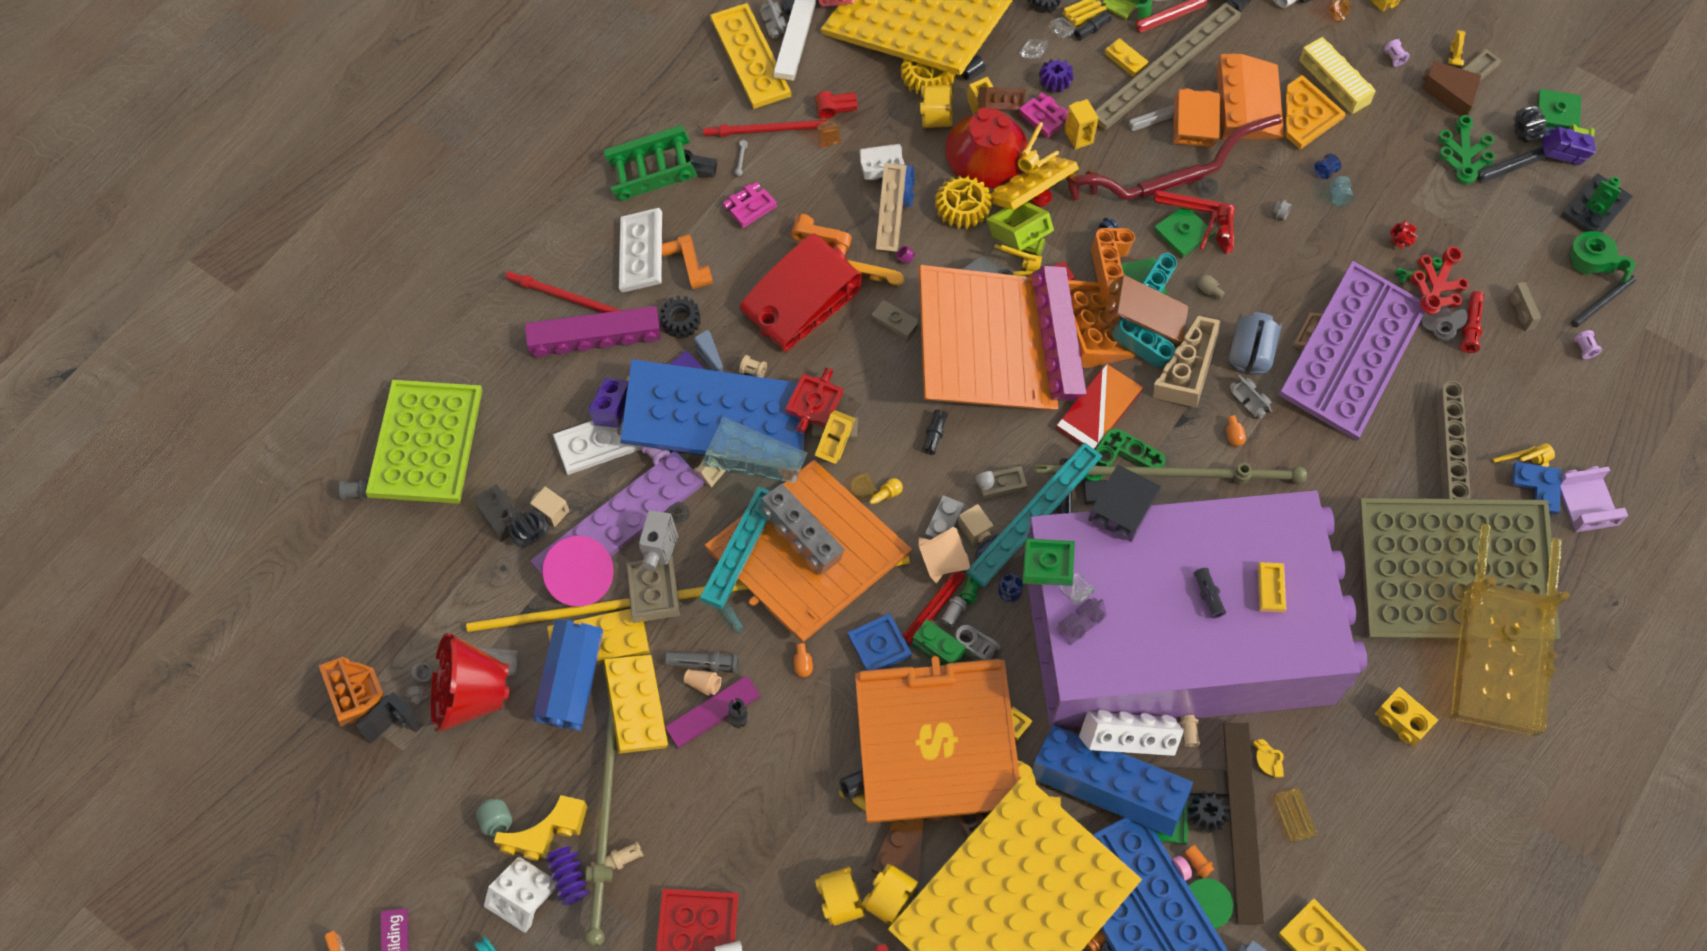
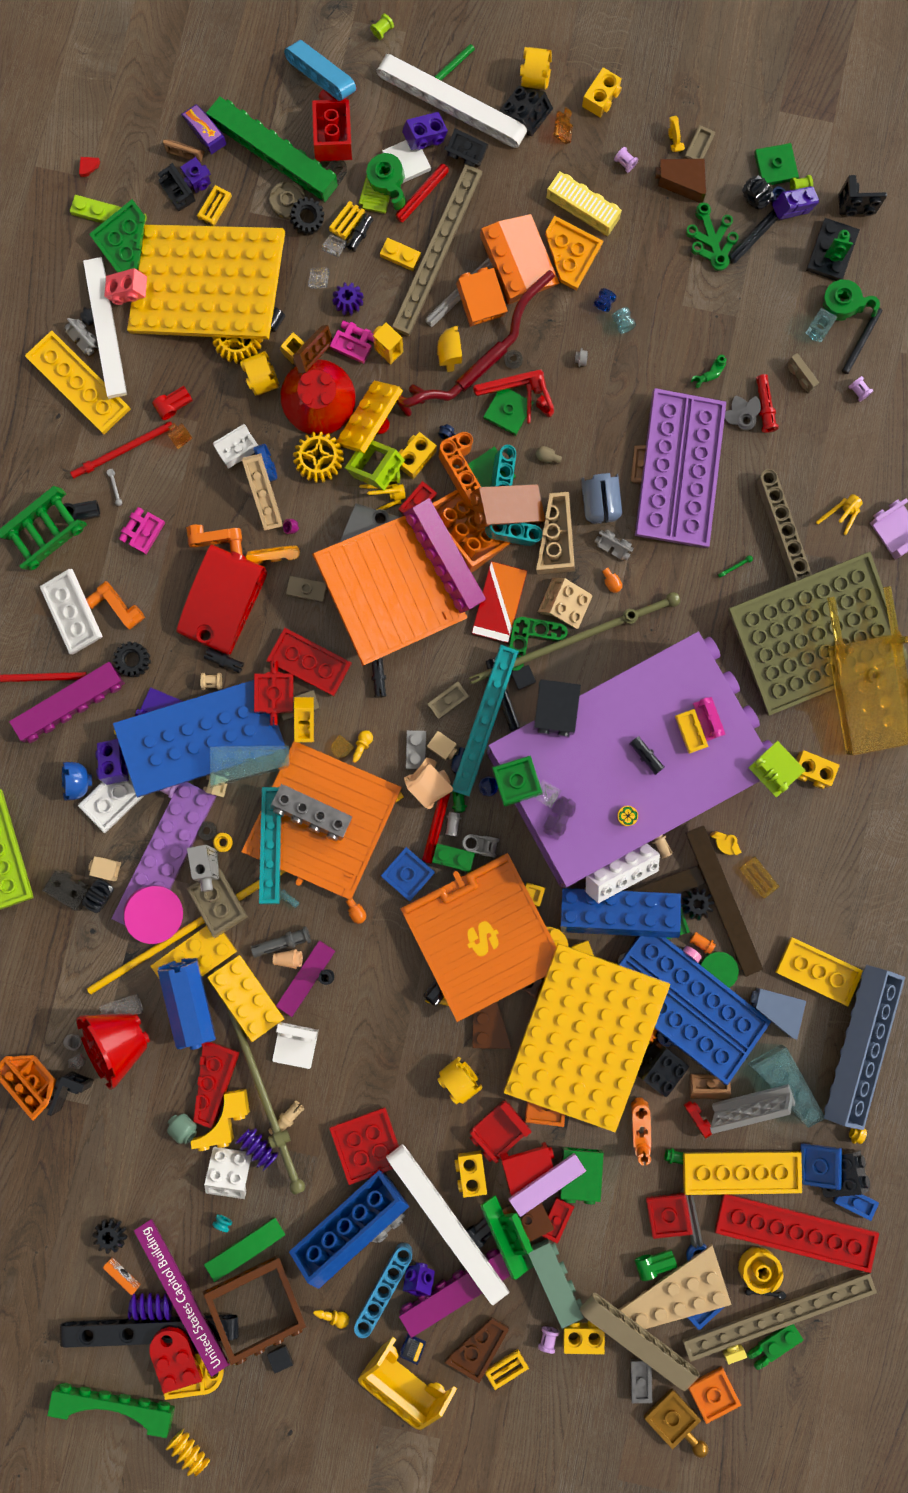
camera: 25 degrees left, 20 degrees up
(345, 914) = (104, 1239): none -> black gear
(563, 407) = (75, 780): none -> blue cylinder
(563, 771) = (215, 1074): none -> red wing
(667, 777) = (295, 1045): none -> white bracket
(688, 525) = (216, 842): none -> yellow plate
(706, 348) = (166, 679): sand blue slope -> none
(775, 353) = (223, 660): none -> black pin
(867, 388) = (309, 662): none -> red plate
(890, 894) = (494, 1065): yellow brick -> none
(985, 480) = (436, 707): light grey hinge -> none
(1030, 158) = (359, 396): yellow plant -> none
(1069, 239) = (420, 458): none -> yellow brick
(1143, 150) = (449, 348): none -> yellow brick
(1162, 649) = (627, 816): none -> tile
(1175, 433) = (565, 602): none -> tan bracket
(1297, 581) = (709, 718): none -> dark pink hinge
(1359, 667) = (776, 769): none -> lime hinge
(1401, 468) = (749, 559): none -> green hinge
(1403, 234) = (686, 344): red gear -> none
(1430, 301) = (728, 379): red plant -> none
(1544, 481) = (860, 527): blue plate -> none
(1561, 268) = (823, 318): none -> clear light blue brick
(1642, 168) = (853, 202): none -> black bracket

